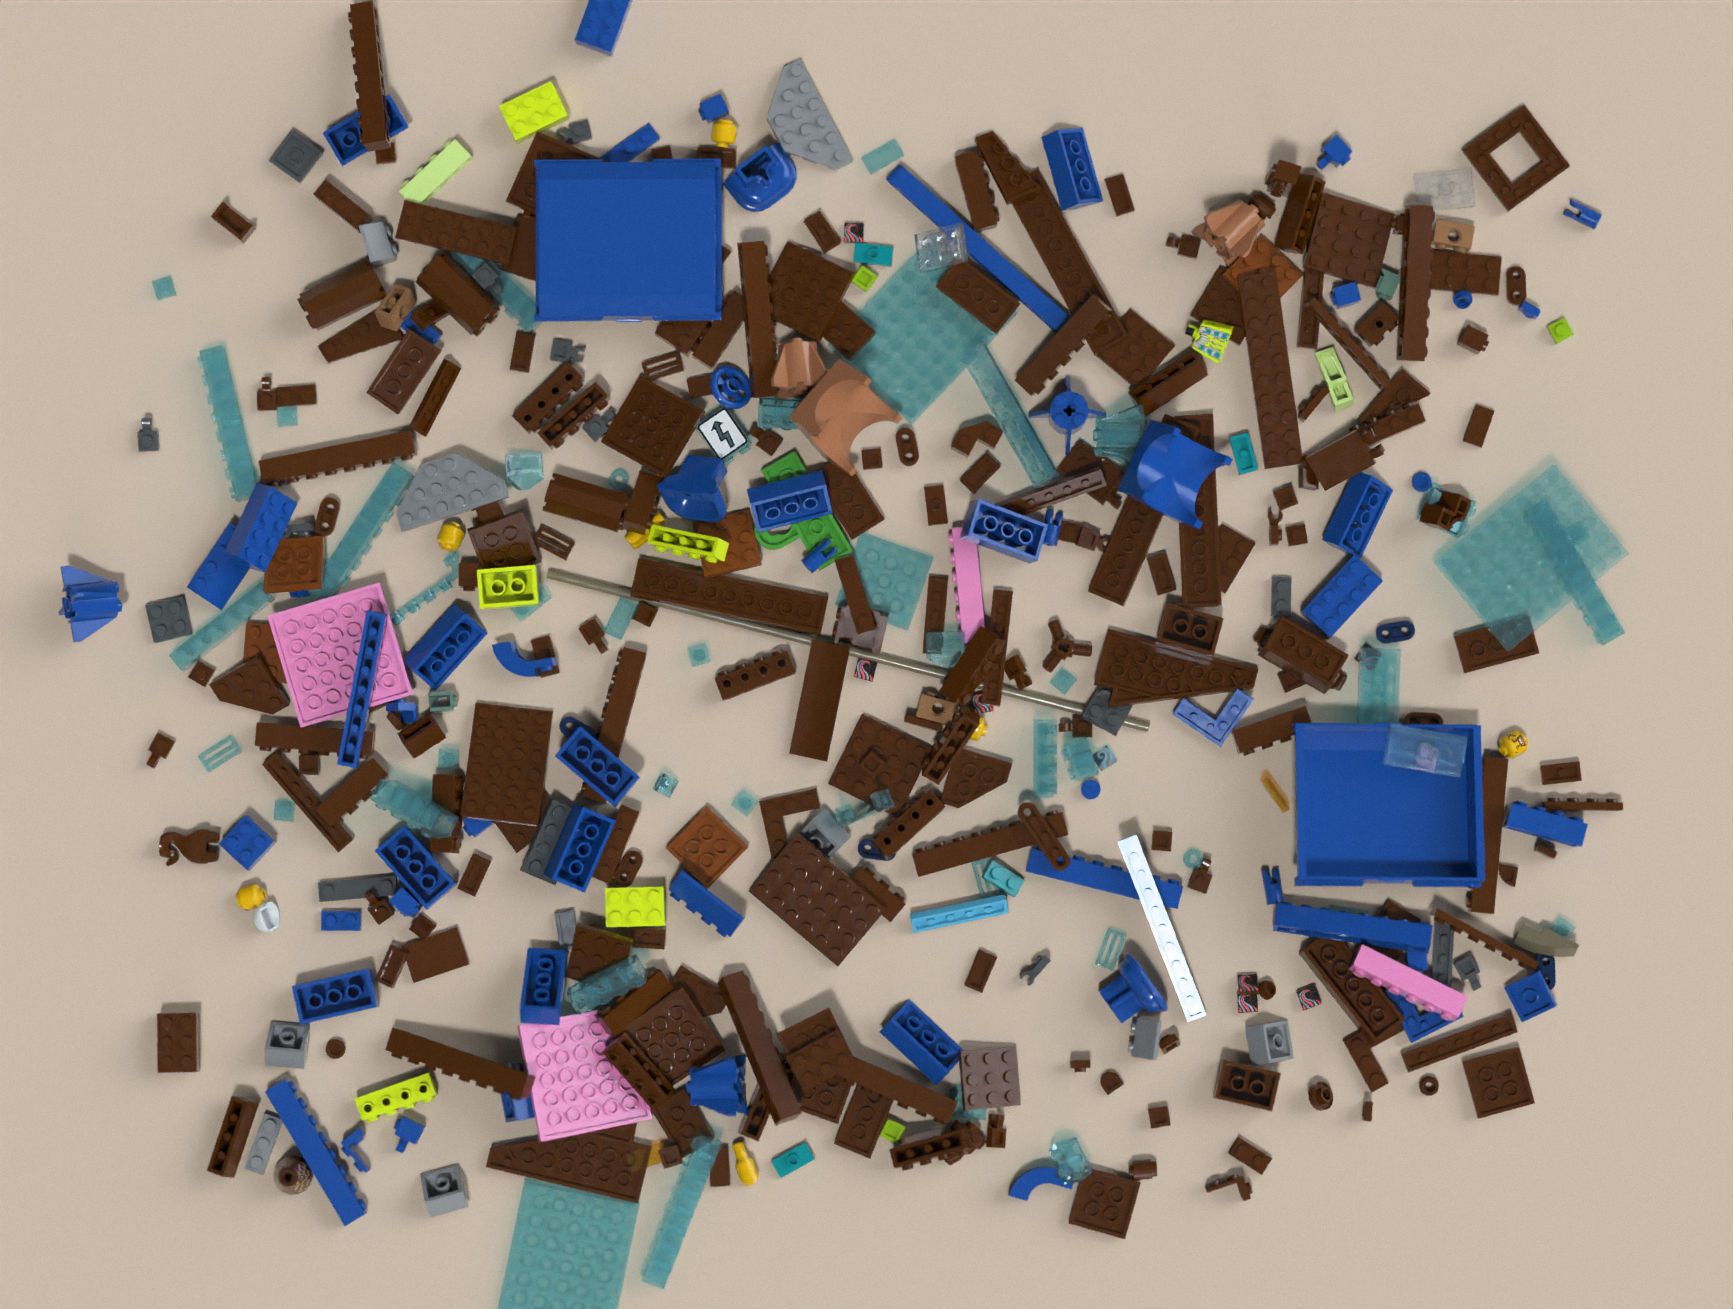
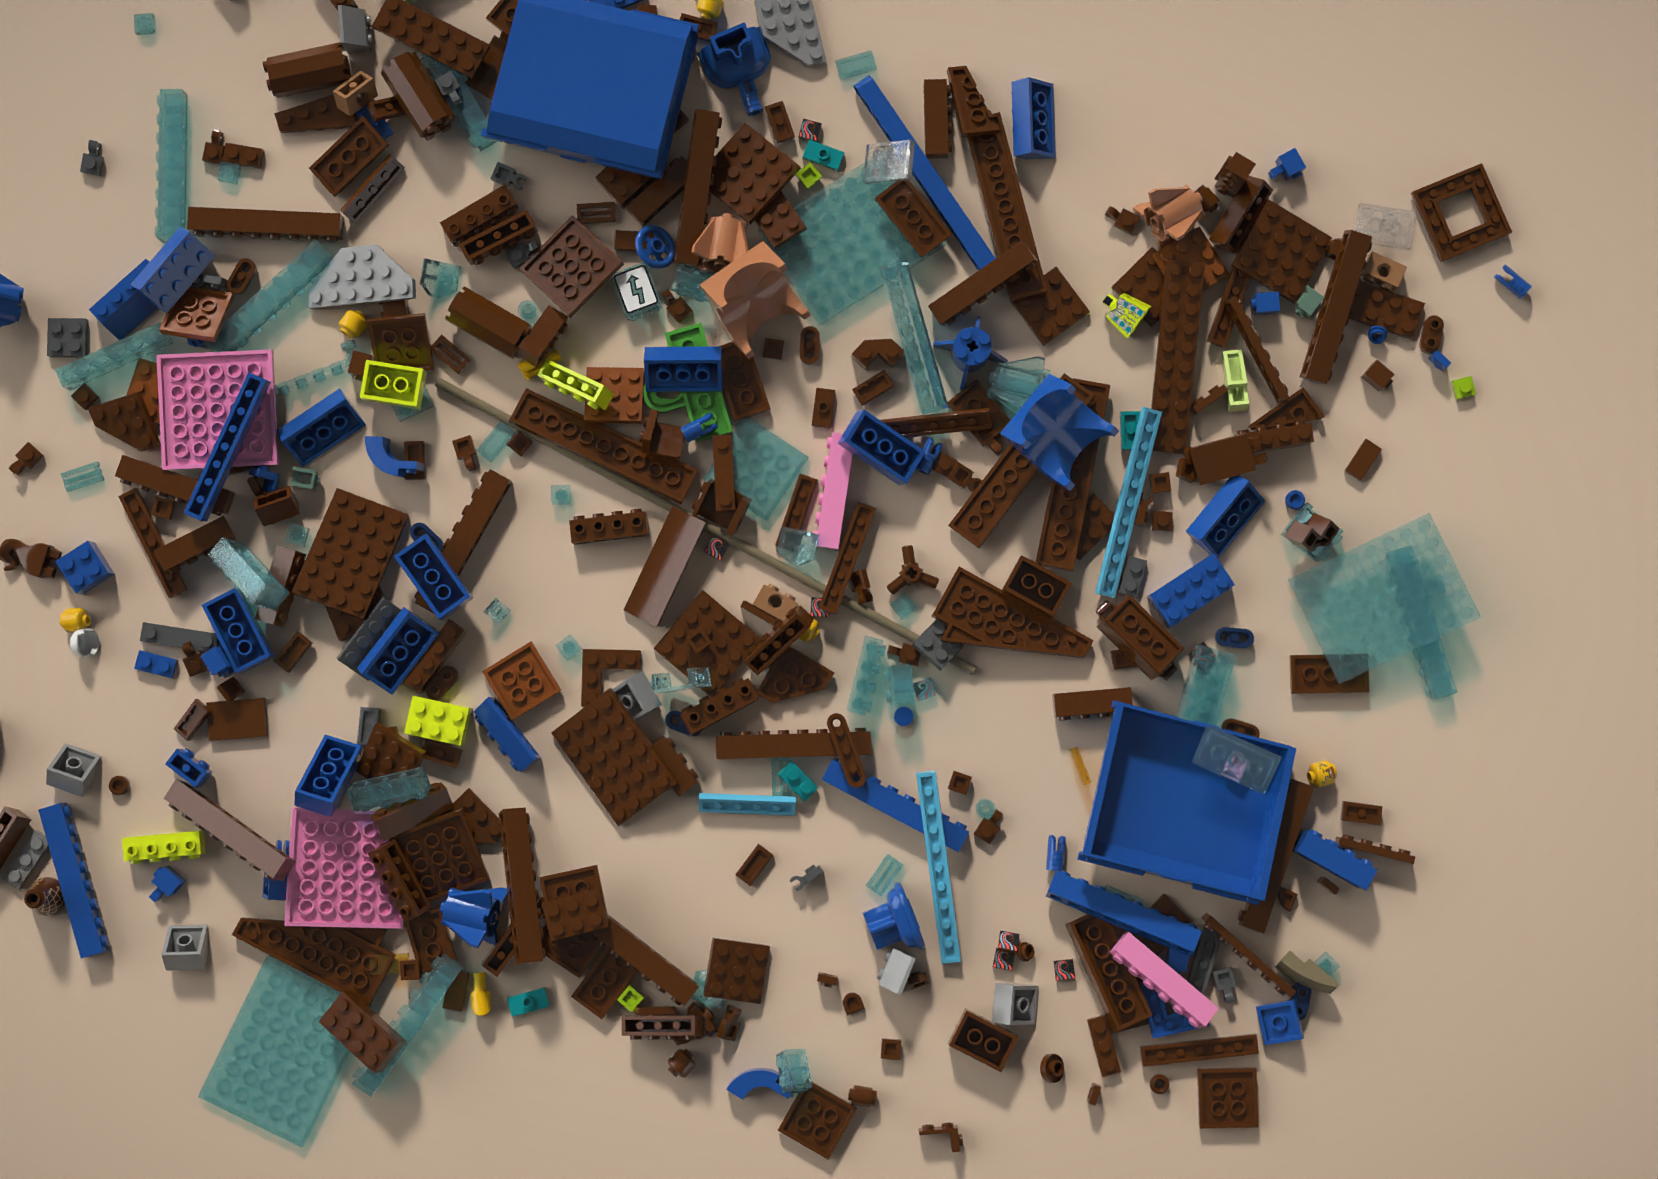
camera: 20 degrees right, 0 degrees up
(284, 811) = (129, 546): clear light blue plate -> none
(335, 996) = (129, 735): blue brick -> none
(355, 1138) = (105, 886): blue bracket -> none
(400, 1013) = (188, 767): none -> blue brick
(476, 827) = (305, 606): blue brick -> none
(522, 352) = (467, 166): reddish brown tile -> none
(641, 1226) = (362, 1031): none -> reddish brown brick
(695, 489) = (596, 335): blue piece -> none
(785, 575) = (661, 438): none -> reddish brown bracket
(789, 217) = (751, 100): none -> blue hinge
(922, 1042) = (680, 919): blue slope -> none
(958, 1181) = (681, 1063): none -> reddish brown head
(972, 666) = (818, 569): reddish brown brick -> none
(1119, 195) = (1072, 156): reddish brown tile -> none
(1161, 574) = (1022, 526): reddish brown plate -> none
(1168, 385) = (1075, 345): reddish brown brick -> none
(1215, 729) = (1040, 688): plate -> none
(1250, 1156) = (969, 1108): reddish brown plate -> none
(1259, 525) = (1128, 502): none -> medium azure plate
(1376, 325) = (1288, 338): reddish brown brick -> none

